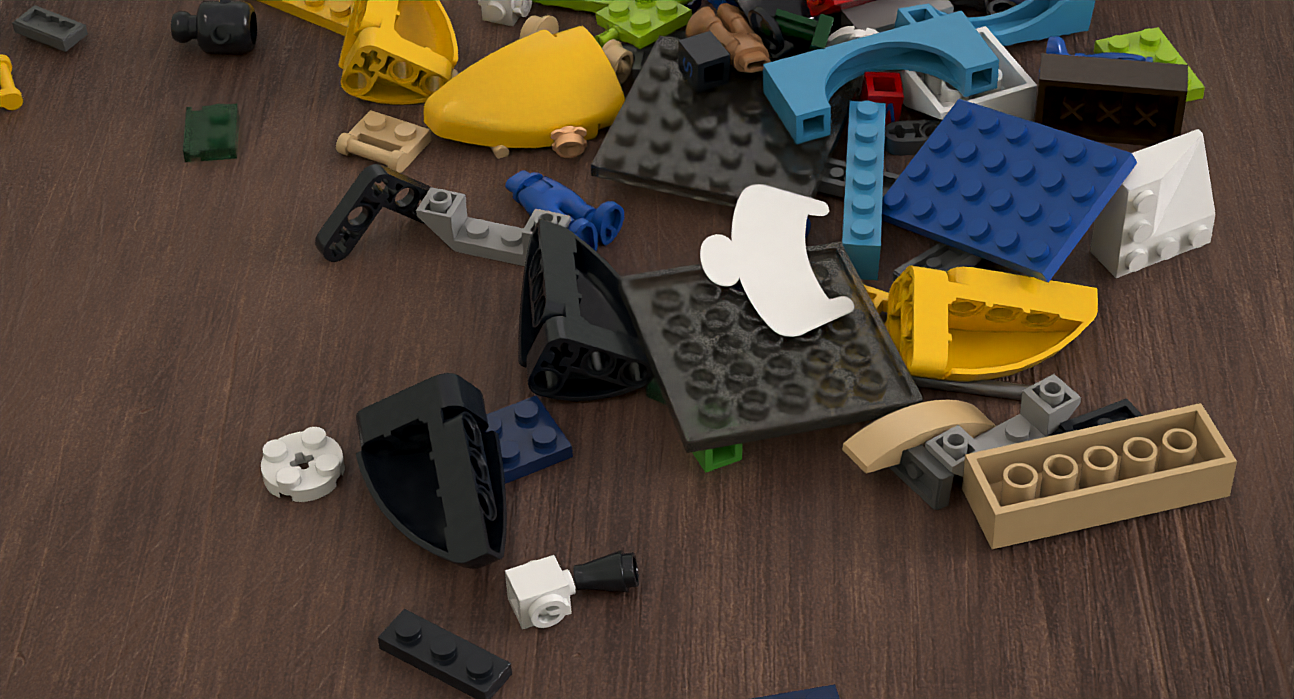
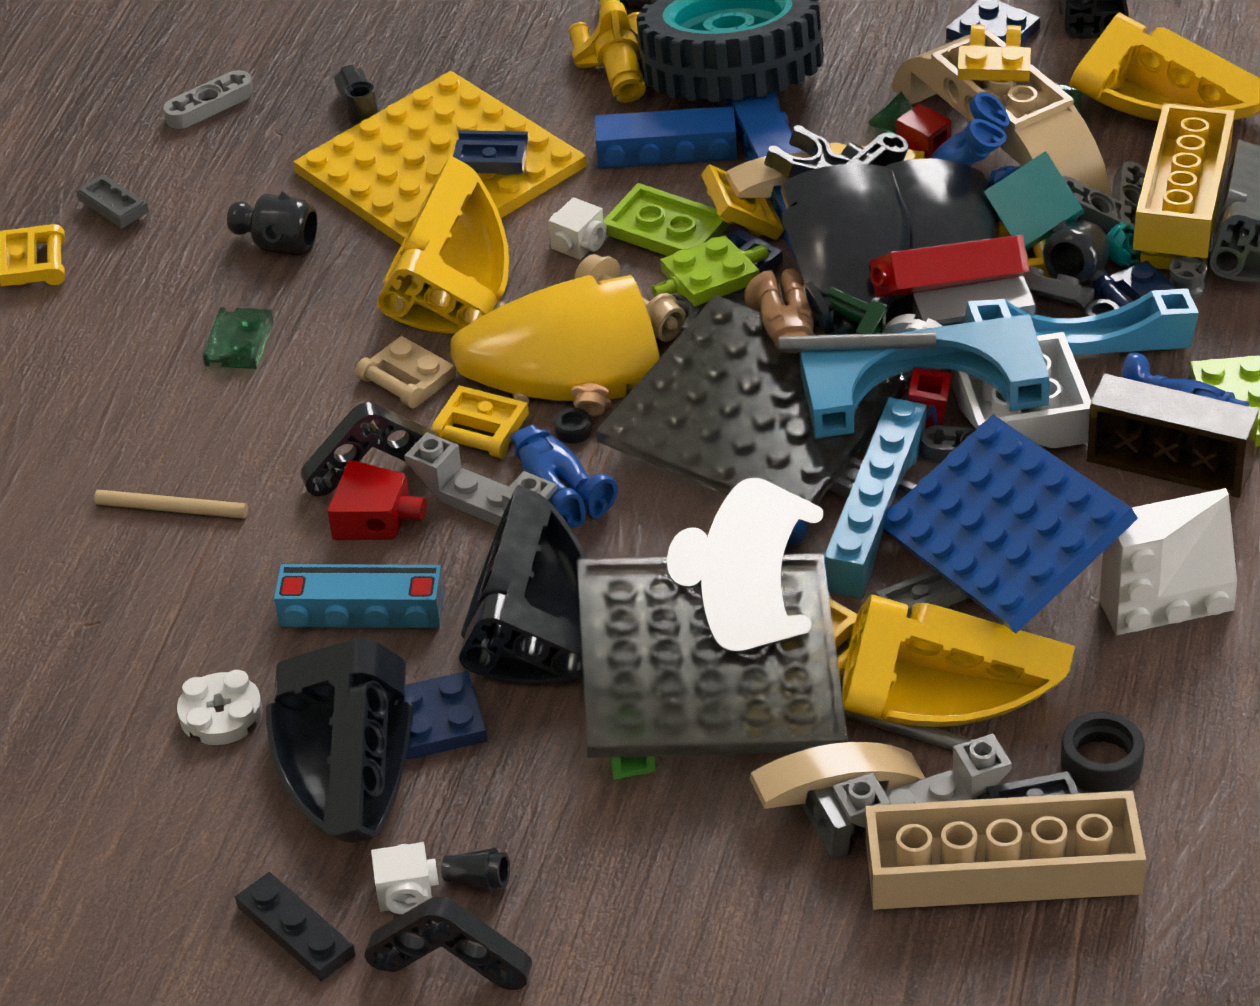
camera: 15 degrees right, 0 degrees up
(193, 288) = (171, 504): none -> tan bar
(394, 259) = (372, 503): none -> red torso
(409, 343) = (359, 596): none -> dark azure brick
(472, 166) = (482, 412): none -> yellow plate
(558, 166) = (572, 425): none -> black tile
(603, 626) = (453, 928): none -> black beam
(703, 61) = (743, 333): black brick -> none
(816, 52) = (857, 341): none -> flat silver bar
(1149, 357) = (1111, 729): none -> black tyre

